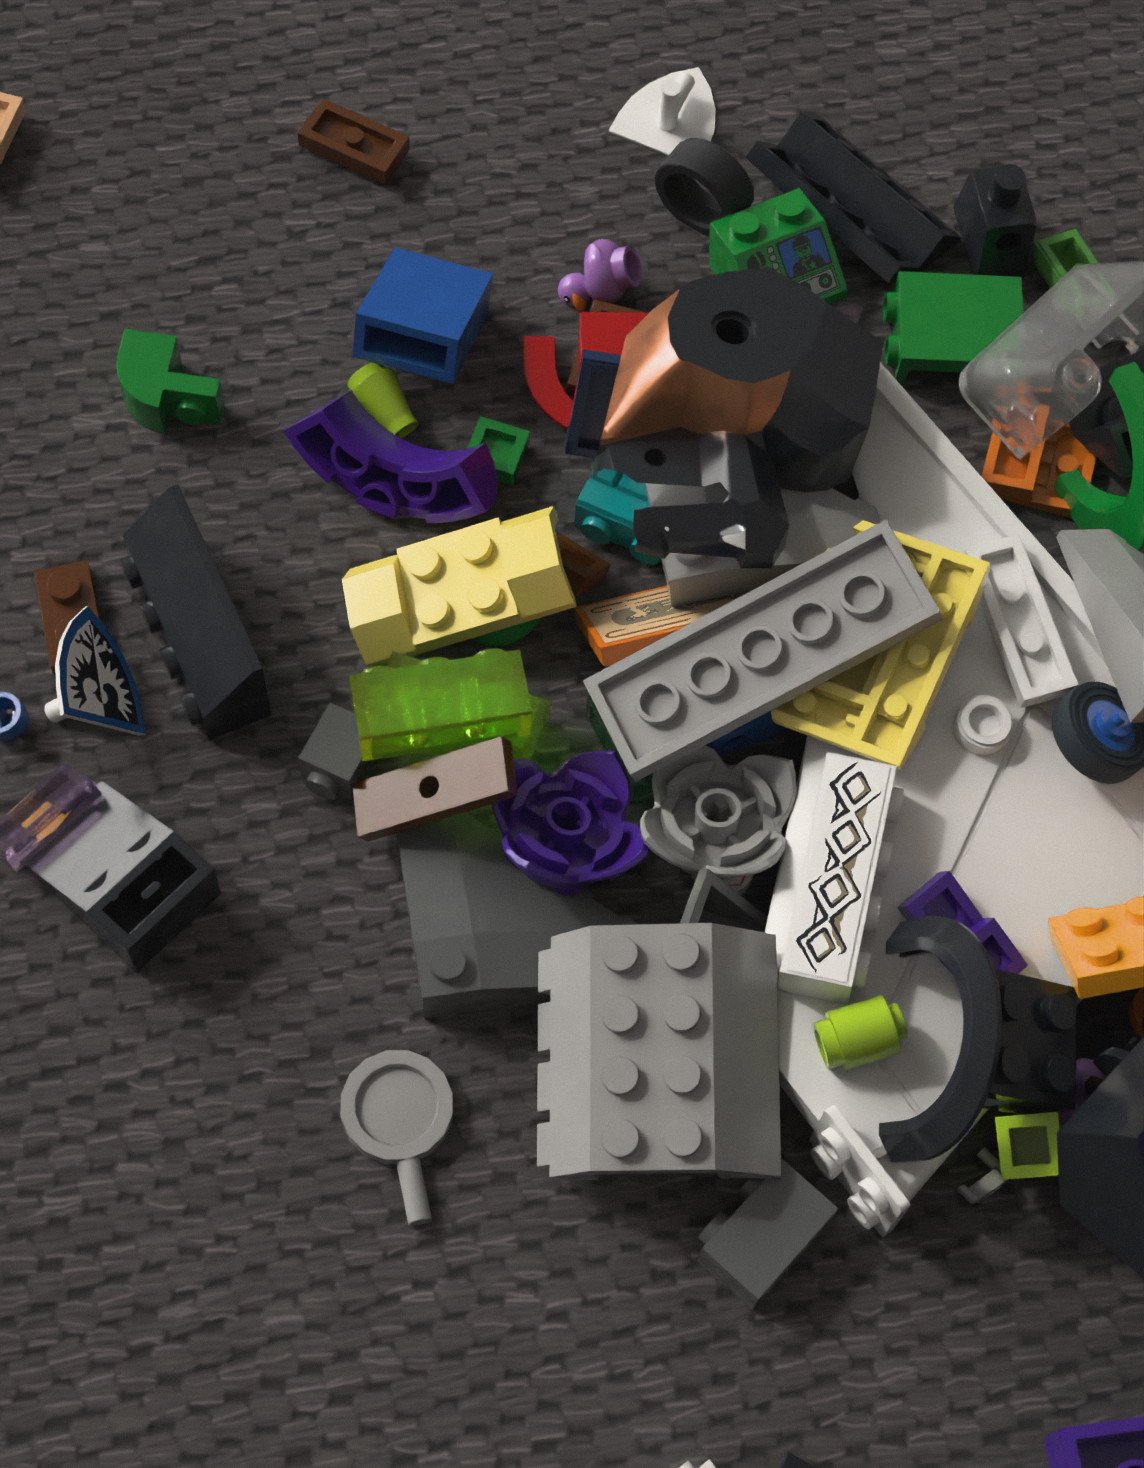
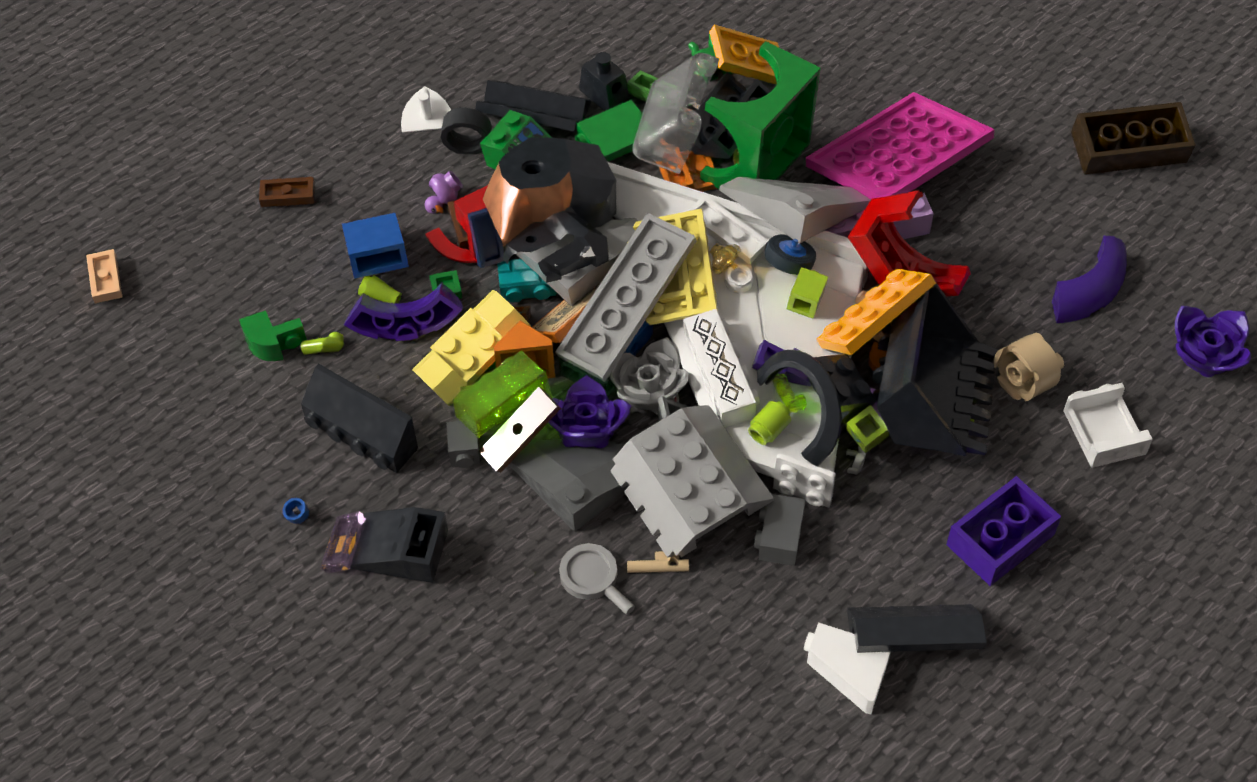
camera: 25 degrees left, 10 degrees down
(61, 596) = (295, 456): reddish brown plate -> none
(94, 679) = (328, 473): shield -> none
(233, 445) = (321, 345): none -> lime arm
(520, 1167) = (660, 564): none -> tan hose
(545, 644) = (531, 342): none -> orange slope
(923, 995) = (787, 395): none -> clear neon green arm
(979, 672) = (724, 257): none -> clear yellow piece
(1087, 821) = (807, 292): none -> lime brick

